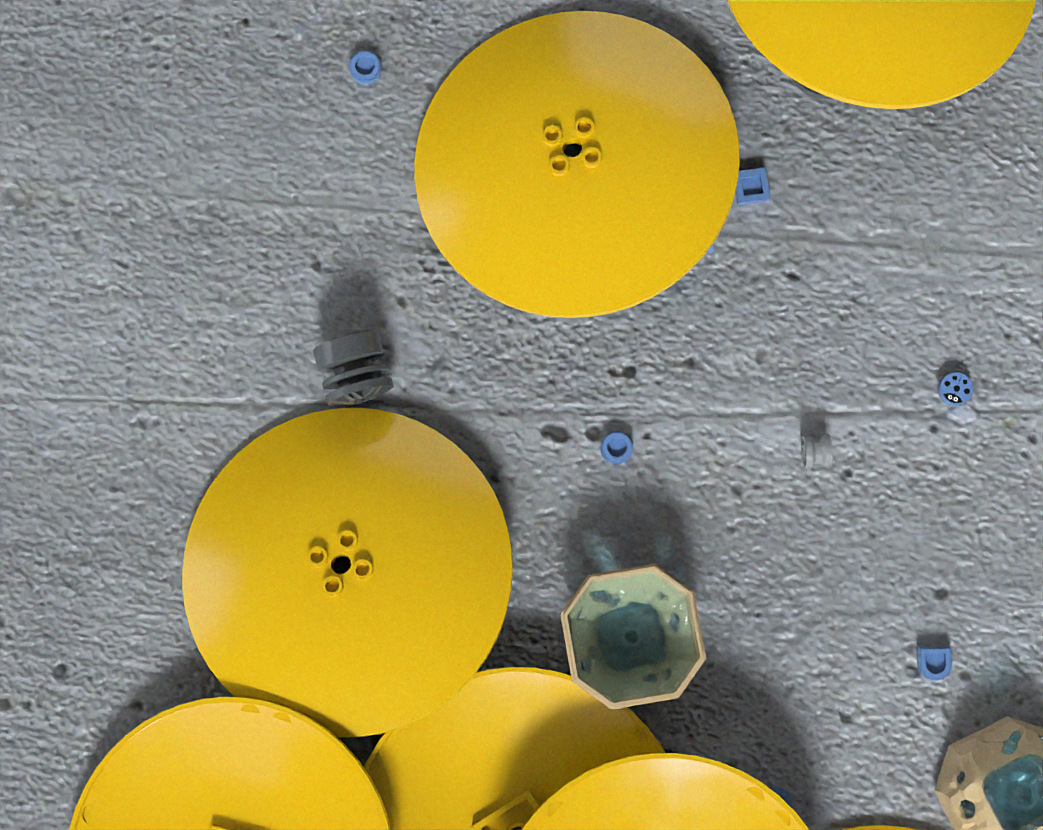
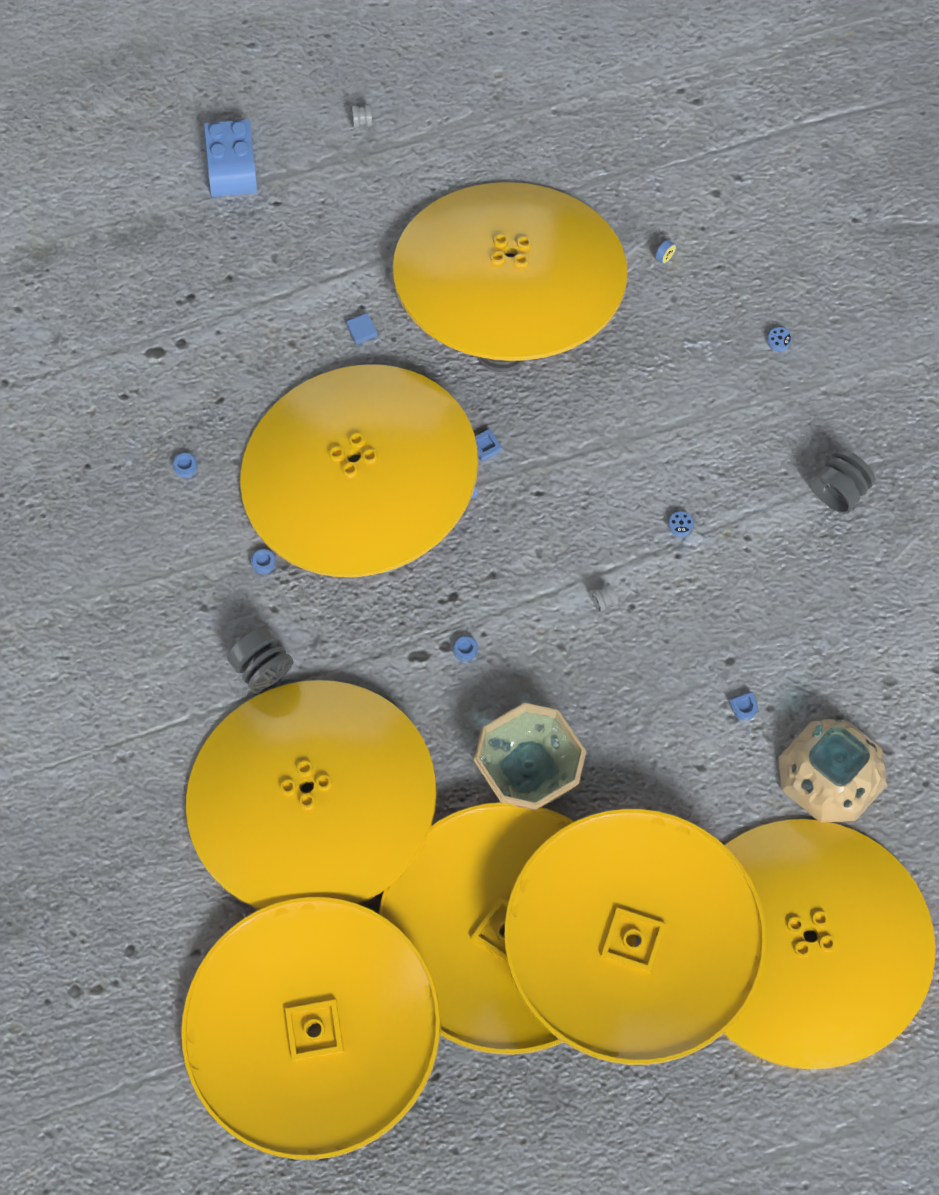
camera: 25 degrees left, 15 degrees down
(412, 234) = (263, 561): none -> medium blue tile

